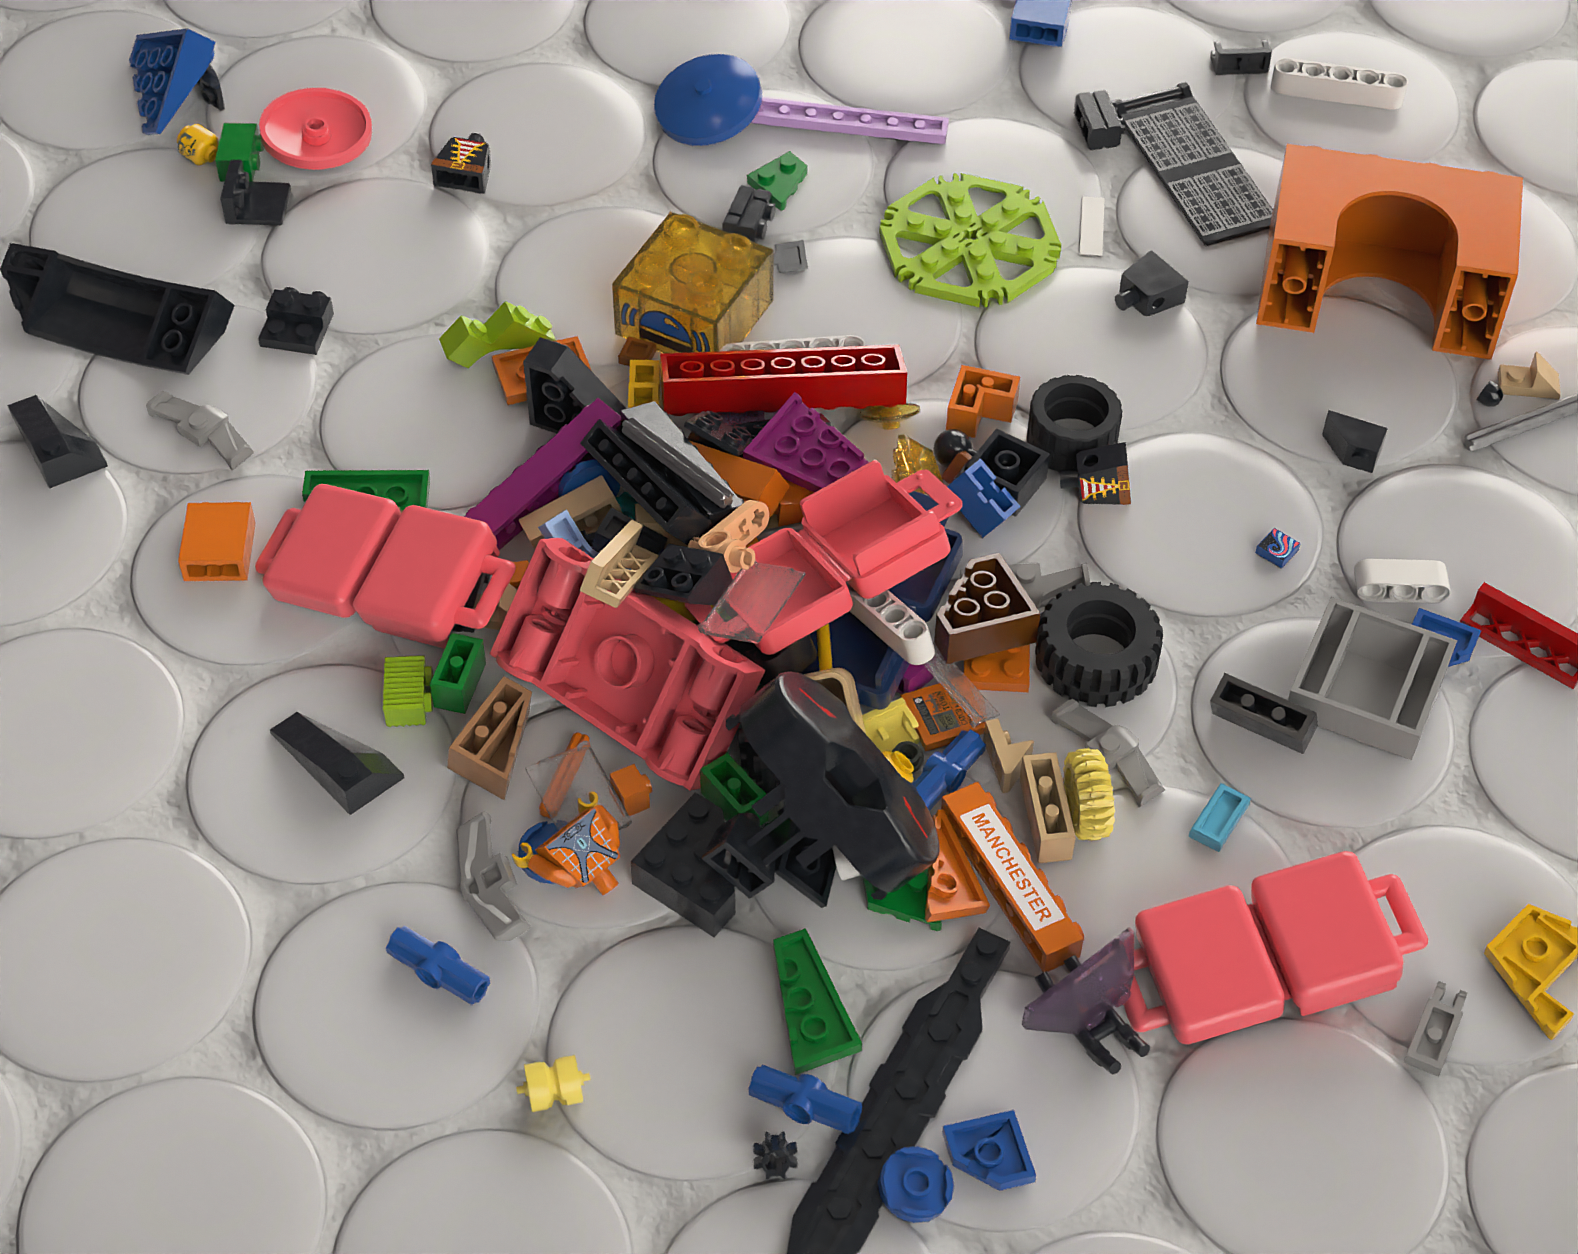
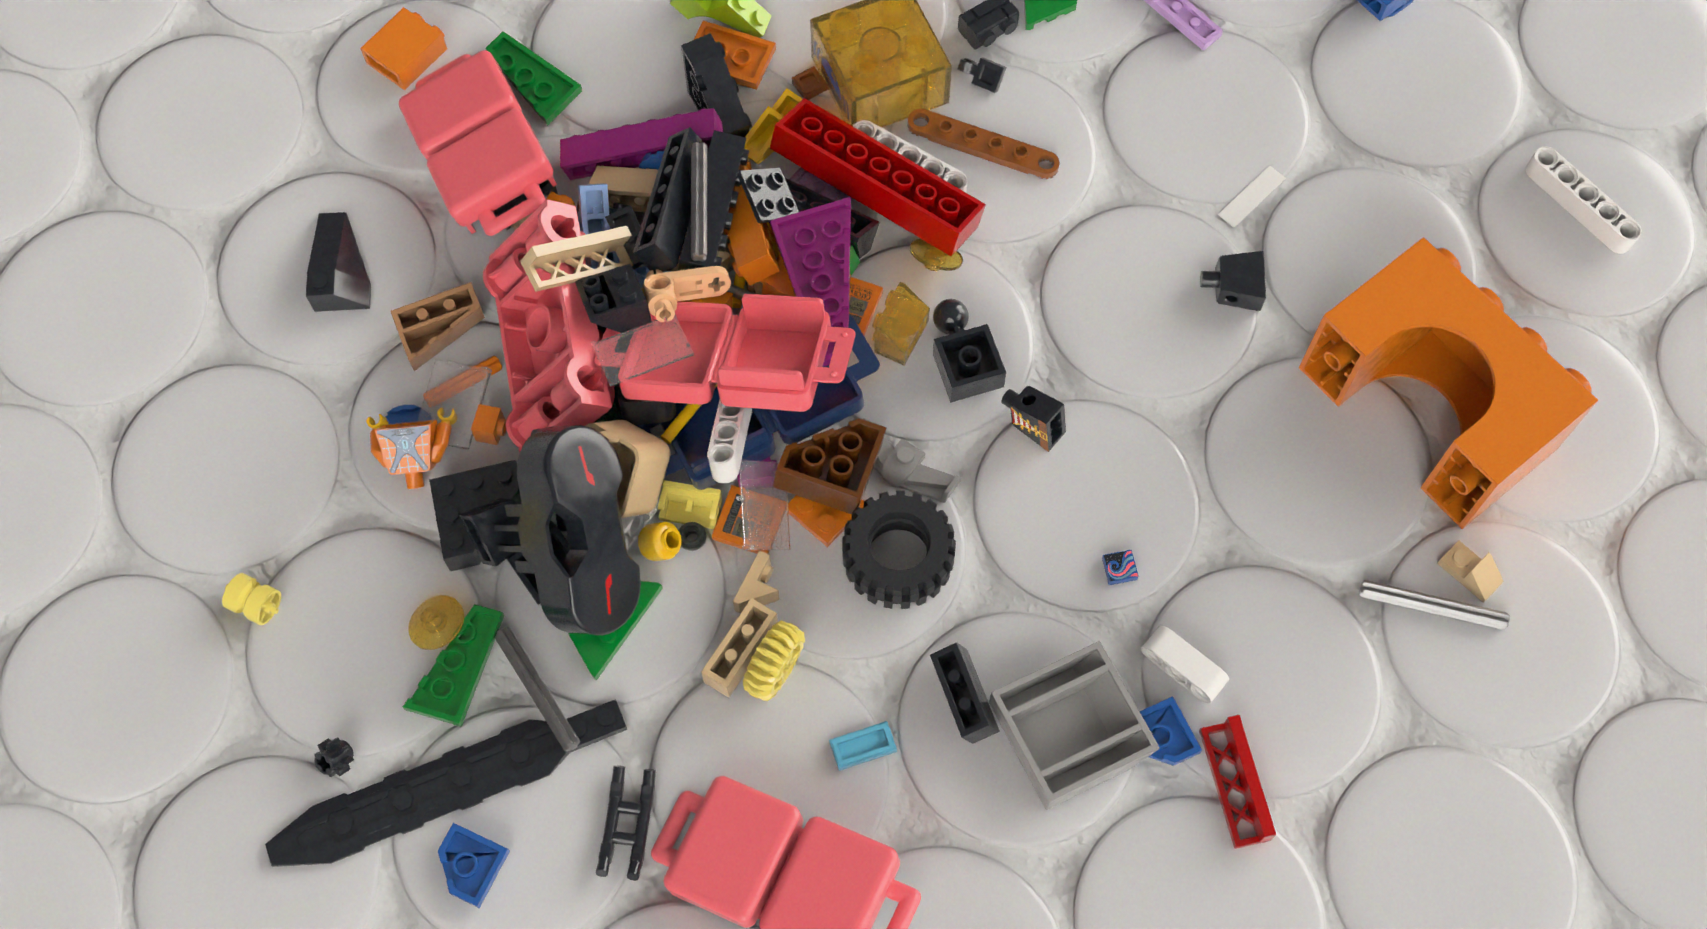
camera: 40 degrees right, 15 degrees up
(406, 690) = (419, 245): lime brick -> none
(438, 965) = (263, 461): blue piece -> none
(458, 673) = (456, 257): green brick -> none
(487, 879) = (344, 423): light grey plate -> none
(756, 991) = (436, 622): none -> clear yellow dish
(805, 1099) = (388, 733): blue piece -> none
(836, 312) = (983, 143): none -> dark orange plate
(903, 967) = (537, 689): none -> flat silver axle
(915, 1184) = (402, 848): blue tile -> none
(947, 770) = (703, 566): blue piece -> none
(952, 884) = (627, 655): orange wing -> none
(956, 467) = (928, 335): dark orange tile -> none
(977, 255) = (1132, 161): lime plate -> none
(980, 395) = (1009, 284): orange brick -> none
(982, 499) = (925, 373): blue brick -> none
(1012, 877) = (671, 680): orange brick -> none
(1072, 399) = (1065, 330): black tyre -> none
(1087, 991) = (633, 805): clear purple wedge -> none
(1098, 120) = (1343, 106): black brick -> none
(1116, 745) = (840, 636): light grey plate -> none
(1196, 165) = (1387, 190): black flag -> none
(1241, 60) = (1521, 125): black hinge -> none
(1354, 440) = (1268, 524): black slope -> none
(1490, 395) = (1423, 560): black hinge -> none

